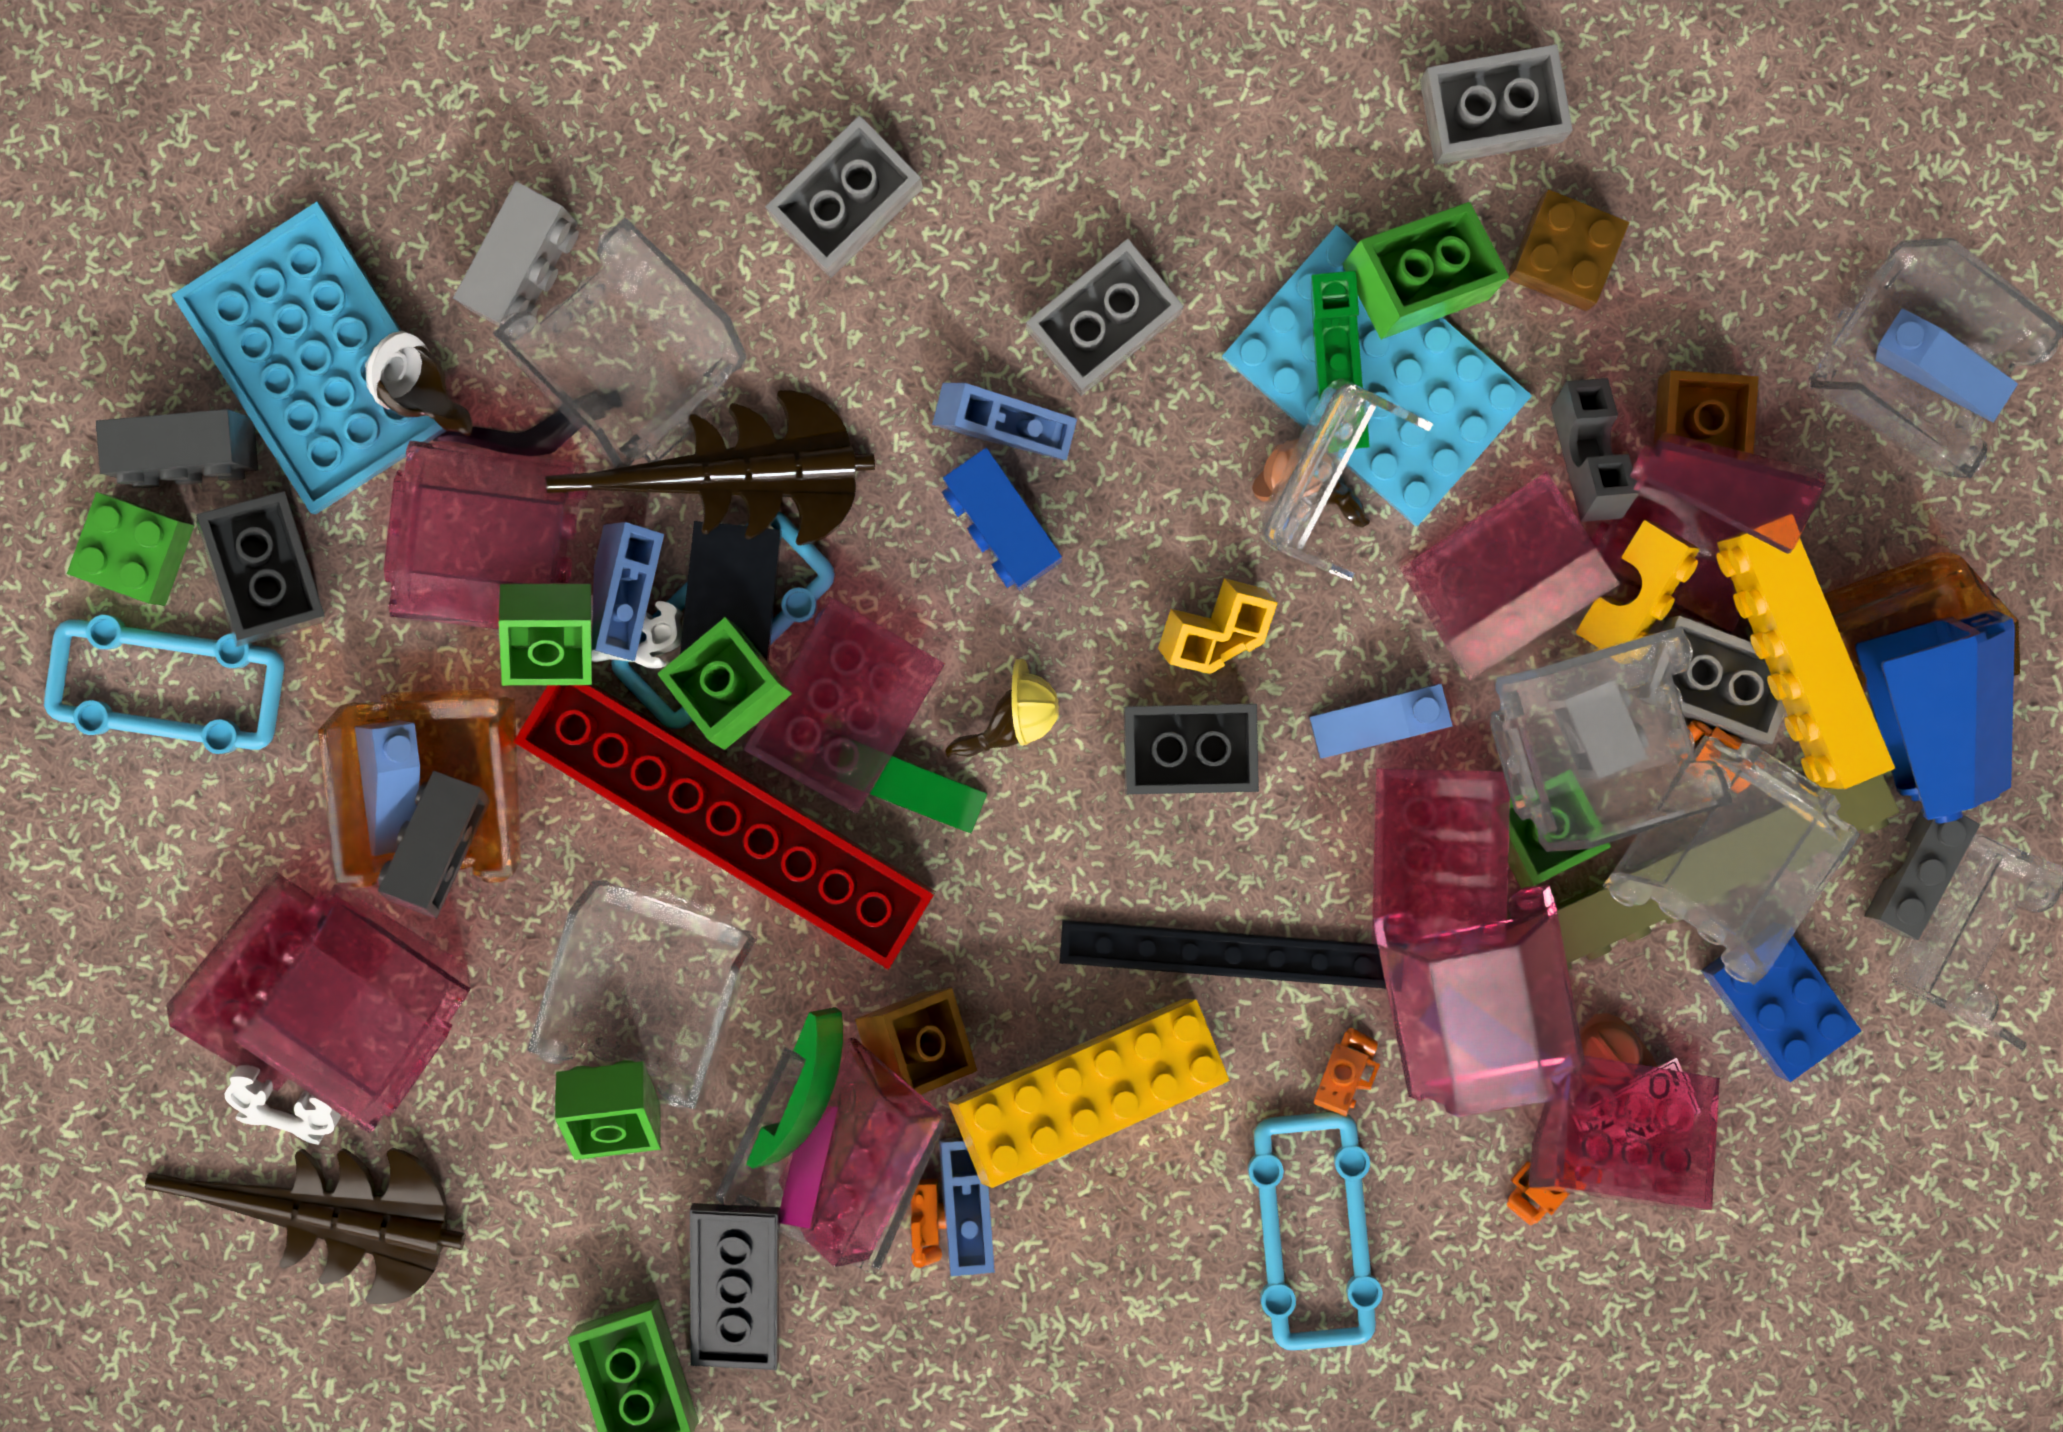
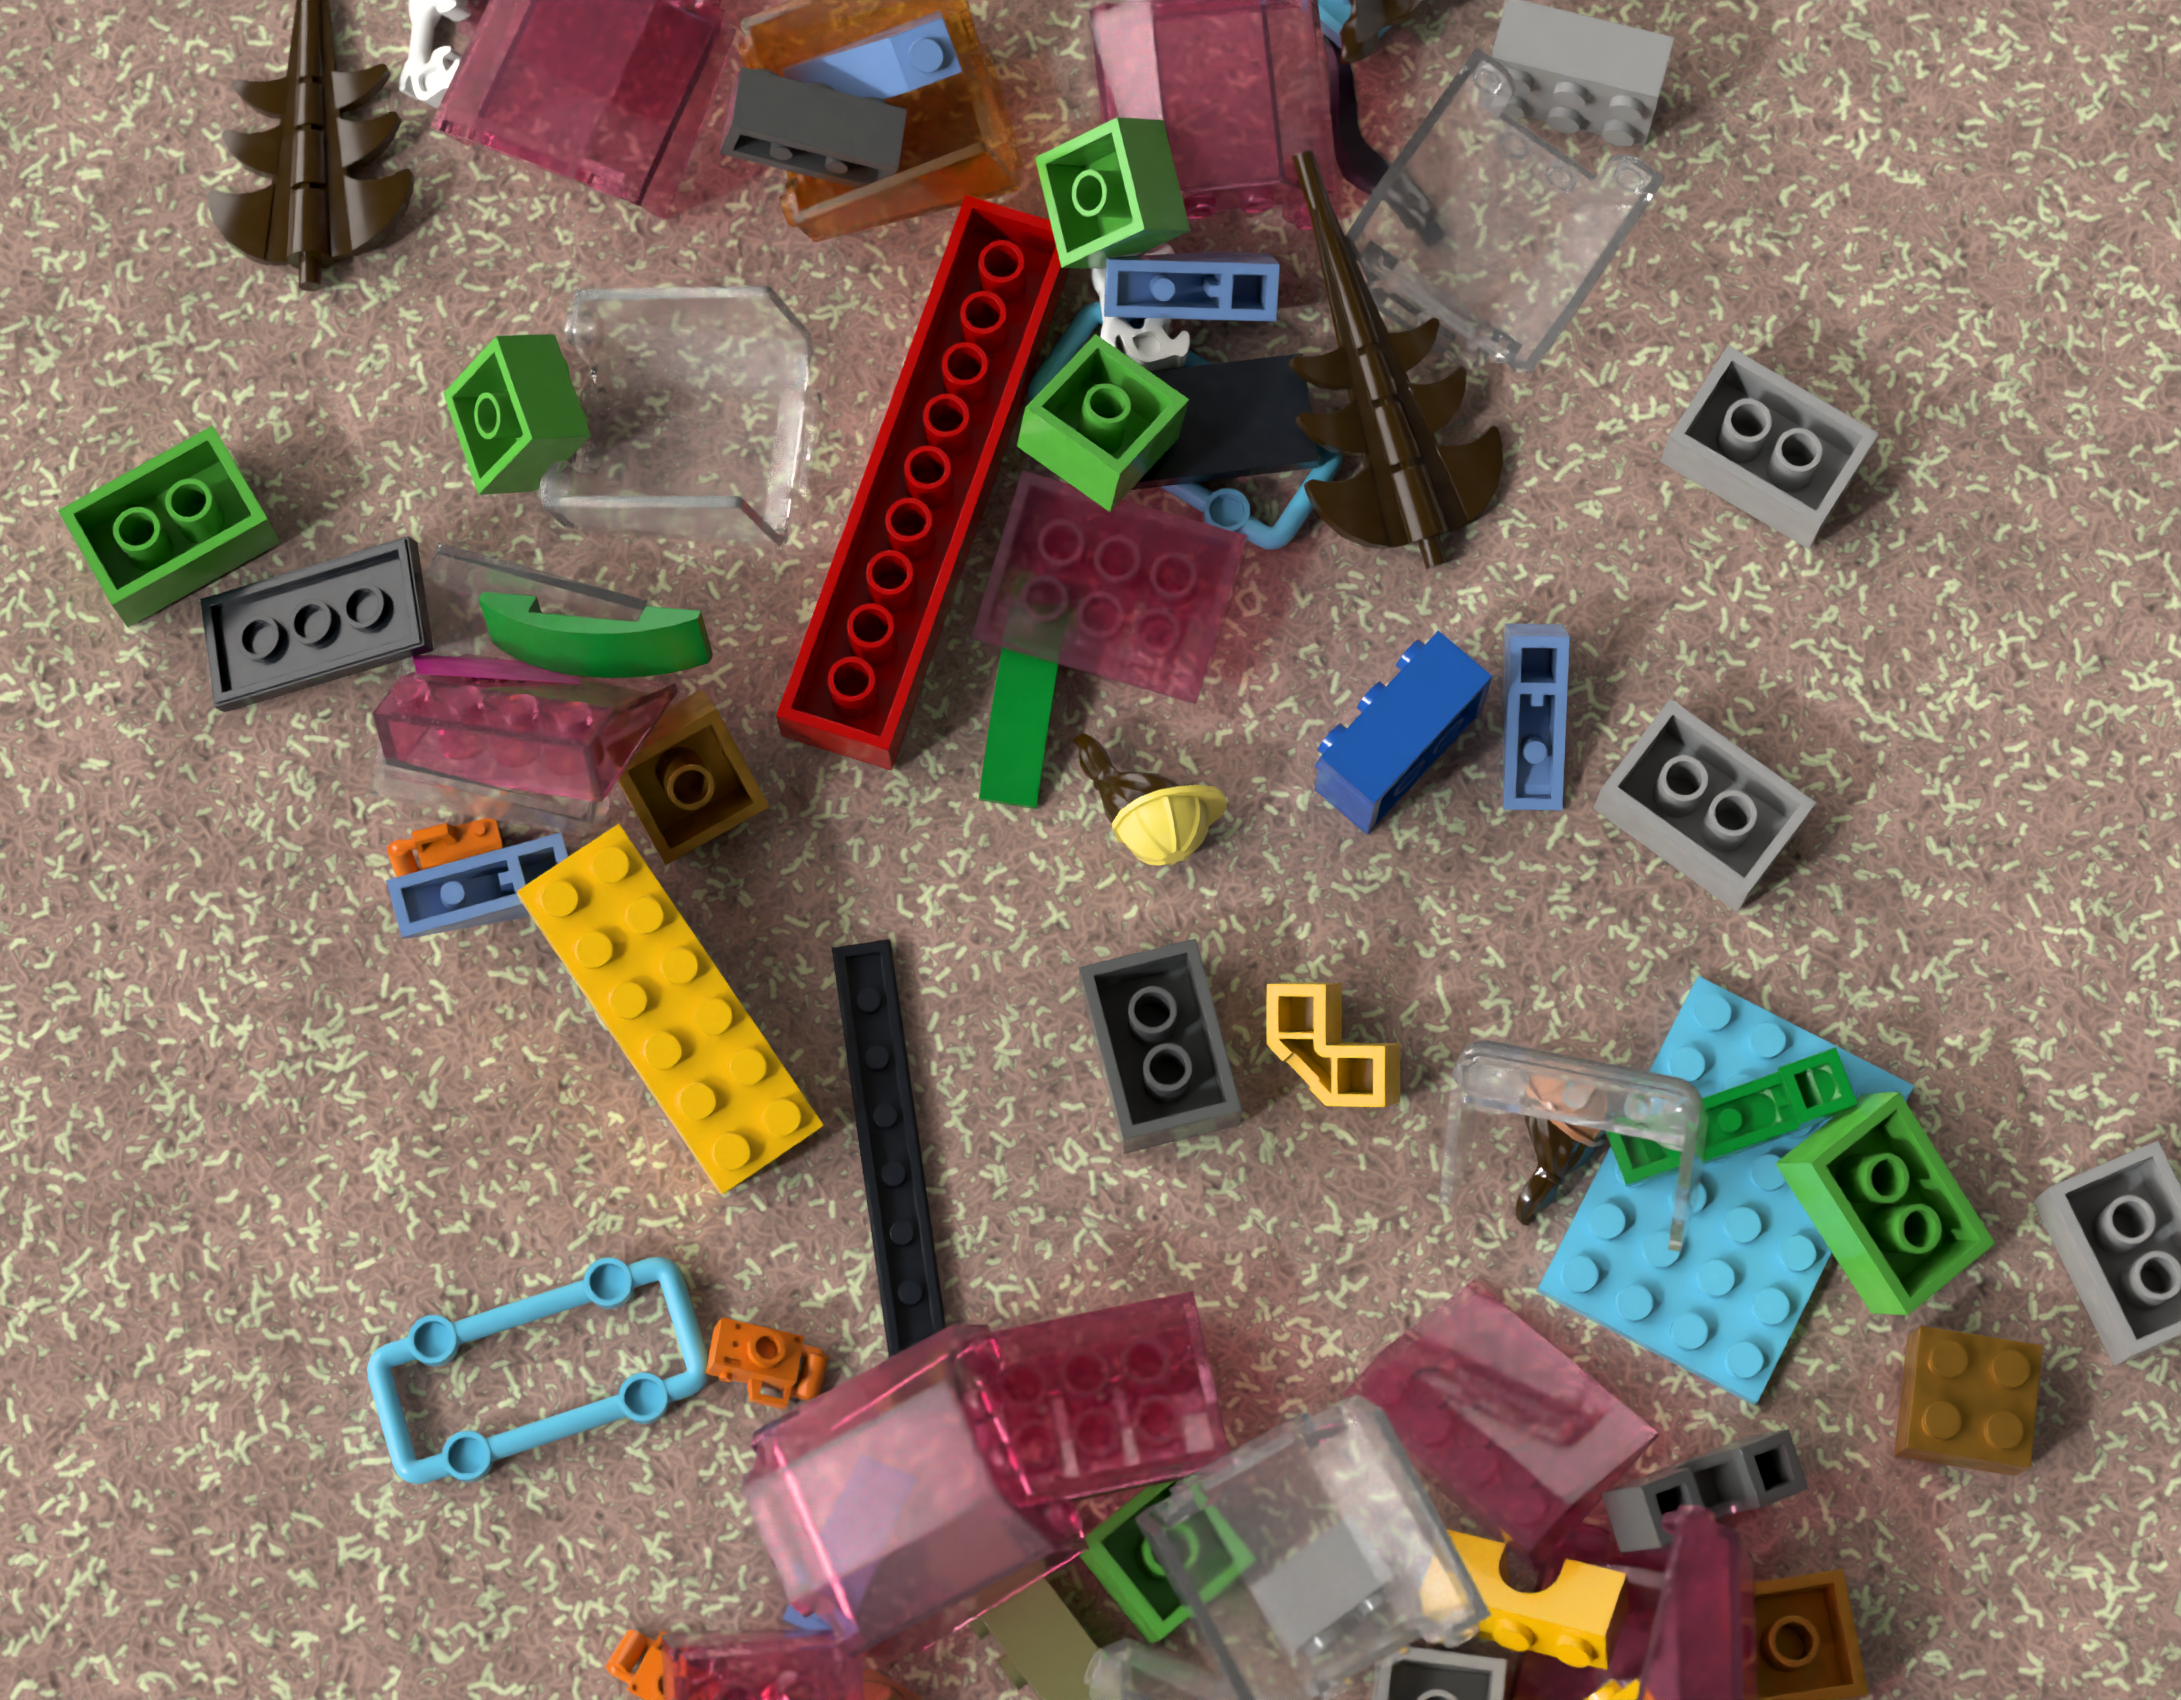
camera: 80 degrees right, 15 degrees down
(1381, 721) = (1260, 1299): medium blue slope -> none

